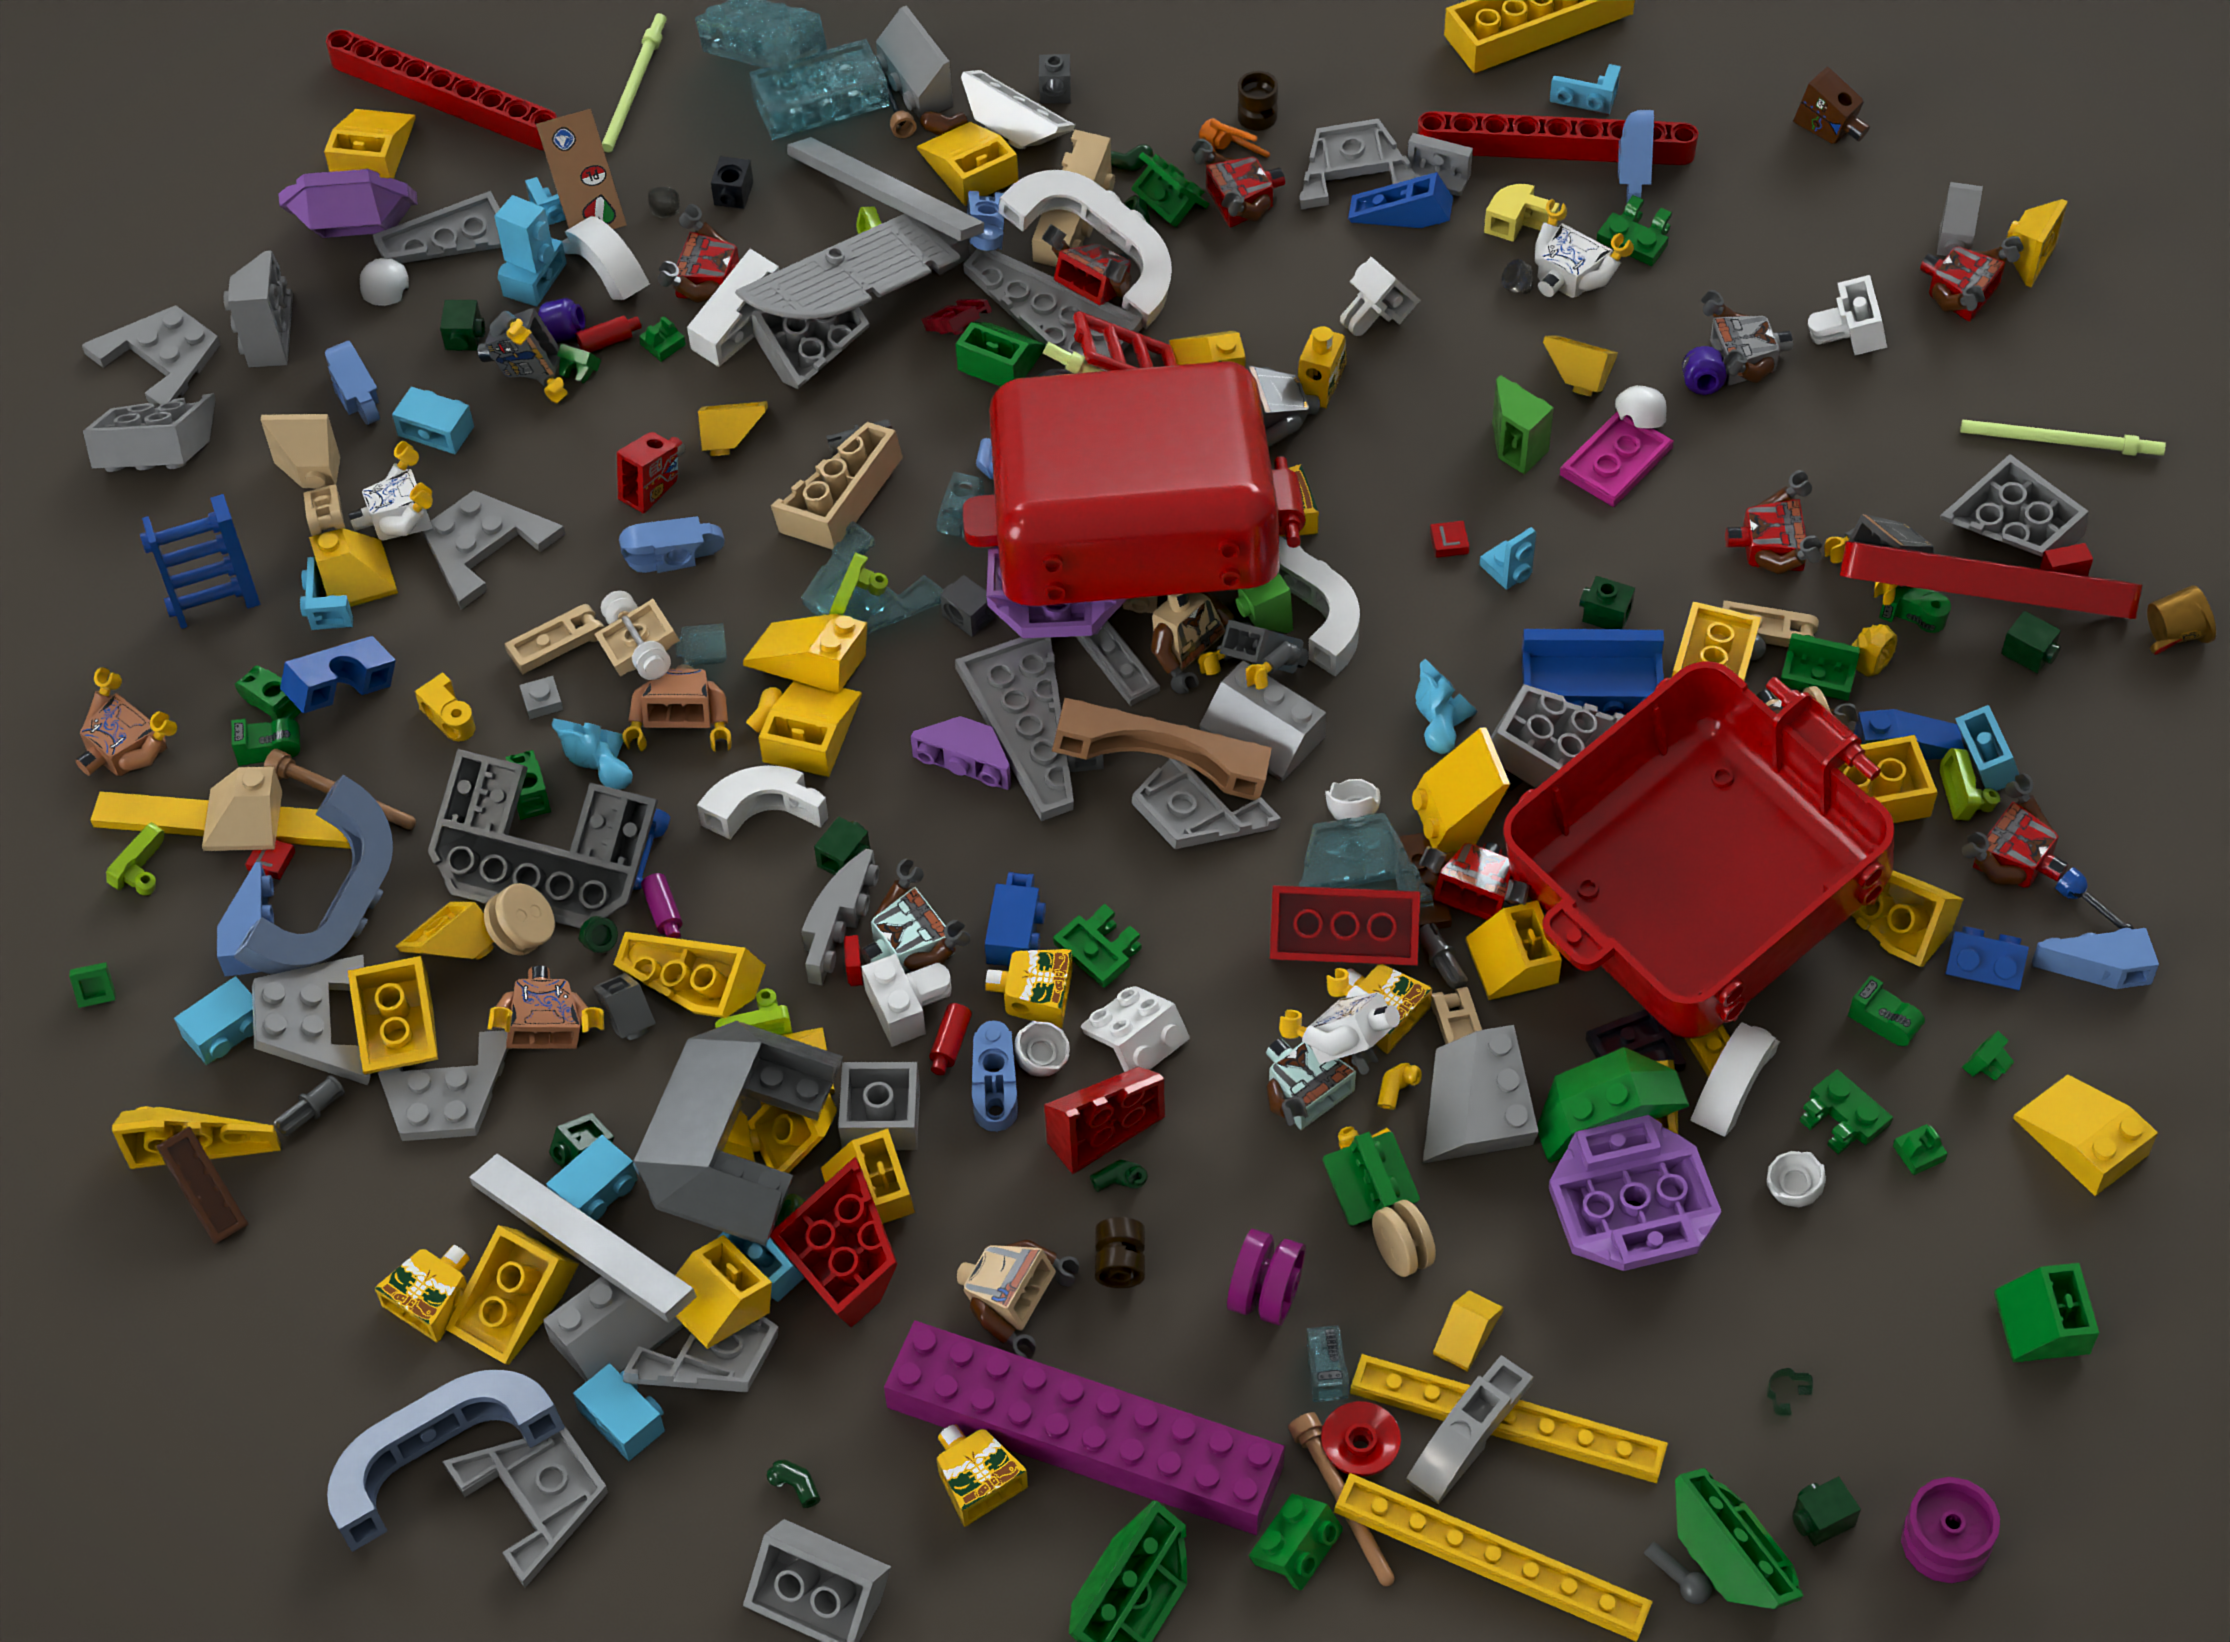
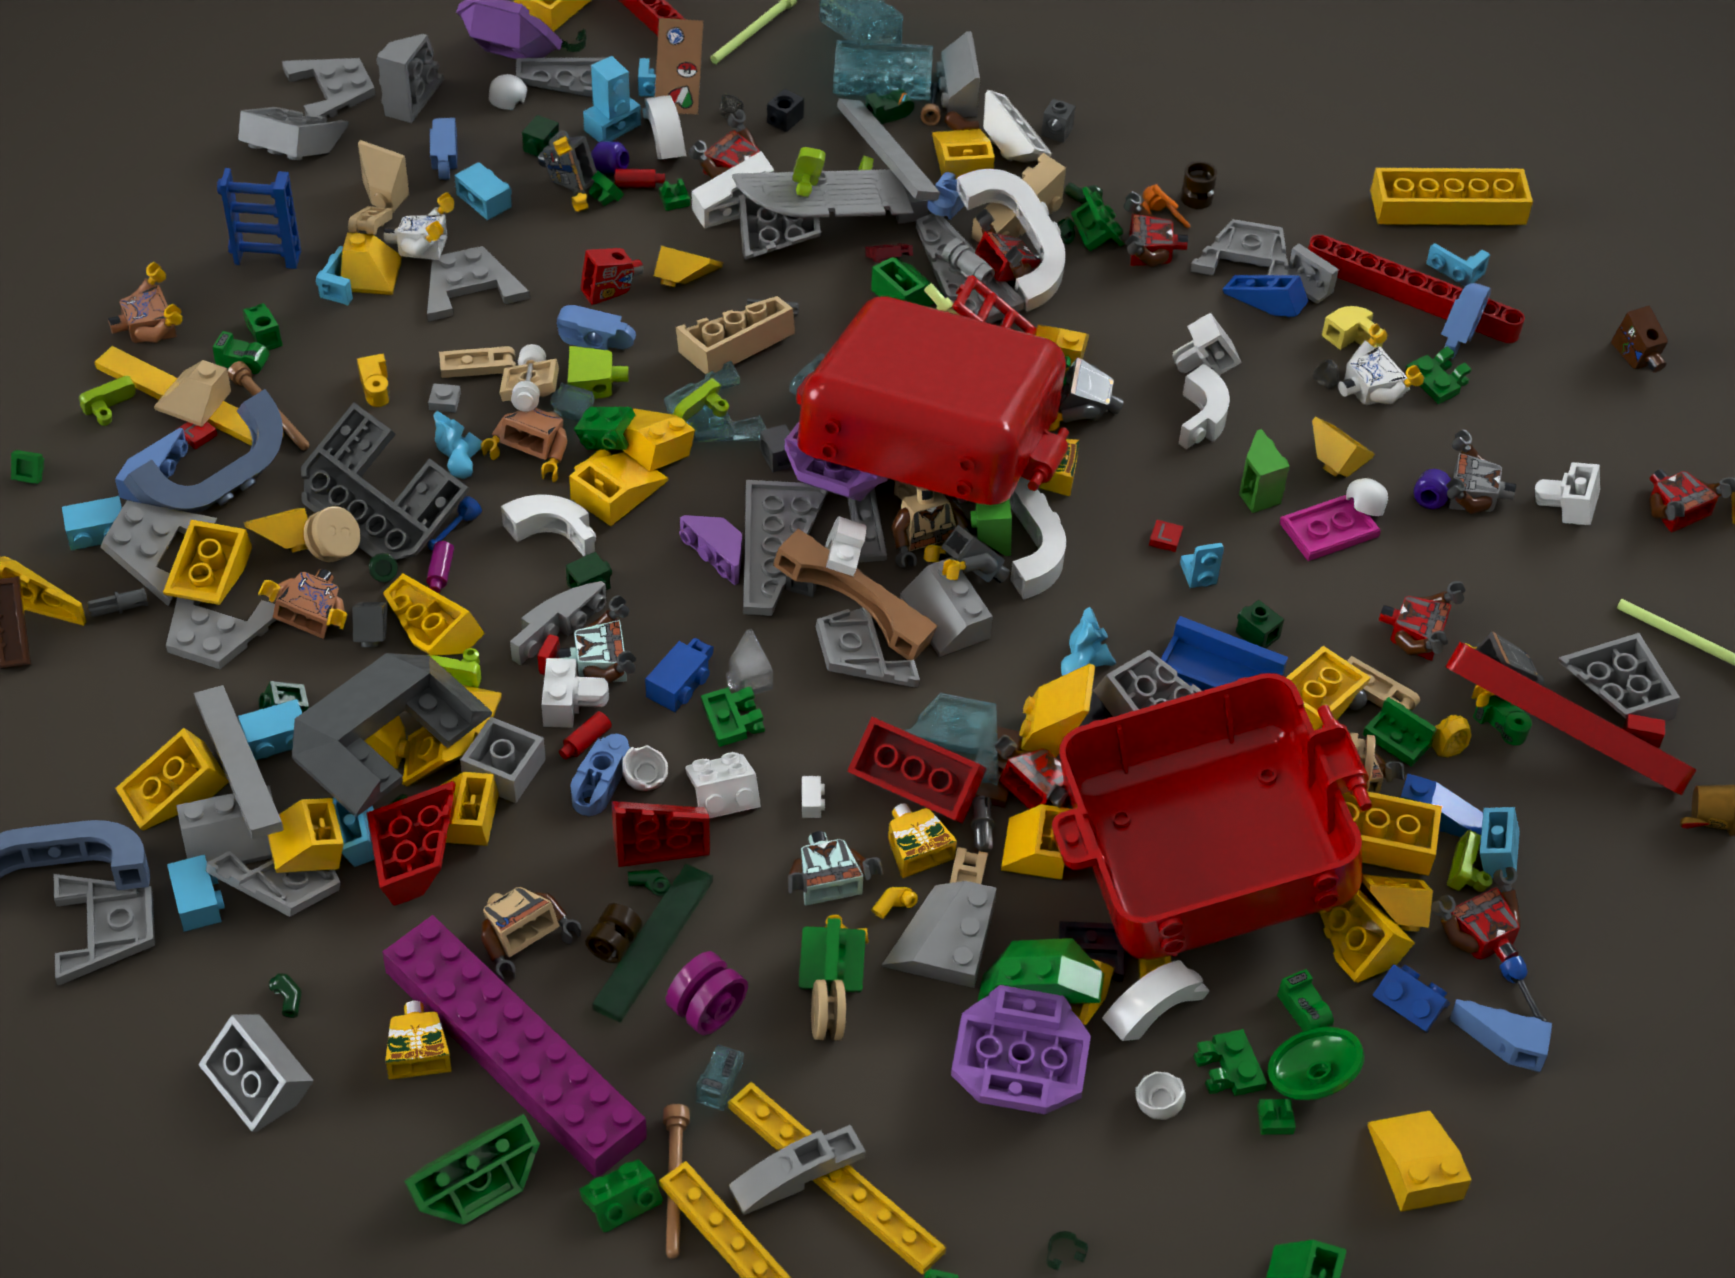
camera: 20 degrees right, 5 degrees down
(313, 678) = (331, 327): blue arch -> none
(426, 1290) = (116, 754): torso -> none
(431, 193) = (575, 47): none -> clear green piece
(533, 796) = (398, 451): green leg -> none
(700, 596) = (594, 371): none -> lime torso
(760, 661) = (604, 427): none -> green bracket
(824, 254) = (808, 170): none -> lime piece
(850, 131) = (890, 106): none -> dark green leg
(1035, 984) = (669, 723): torso -> none
(1061, 296) = (962, 257): none -> light grey axle
(1088, 880) = (749, 666): none -> clear slope
(1123, 690) = (845, 545): none -> white arch
(1164, 1245) = (652, 943): none -> clear green tile
(1240, 1003) = (811, 796): none -> white piece
(1322, 353) = (1138, 378): yellow torso -> none
(1345, 1027) = (867, 839): white torso -> none
(1353, 799) = (980, 686): white hair -> none
(1361, 1423) = (708, 1129): red dish -> none
(1415, 357) = (1212, 396): none -> white arch
(1467, 1329) = (841, 1097): yellow slope -> none
(1929, 855) = (1403, 899): none -> yellow slope
(1936, 1074) = (1316, 1063): none -> green dish
(1959, 217) = (1700, 450): light grey slope -> none
(1990, 1057) = (1372, 1071): green tile -> none
(2031, 642) = (1582, 778): dark green brick -> none

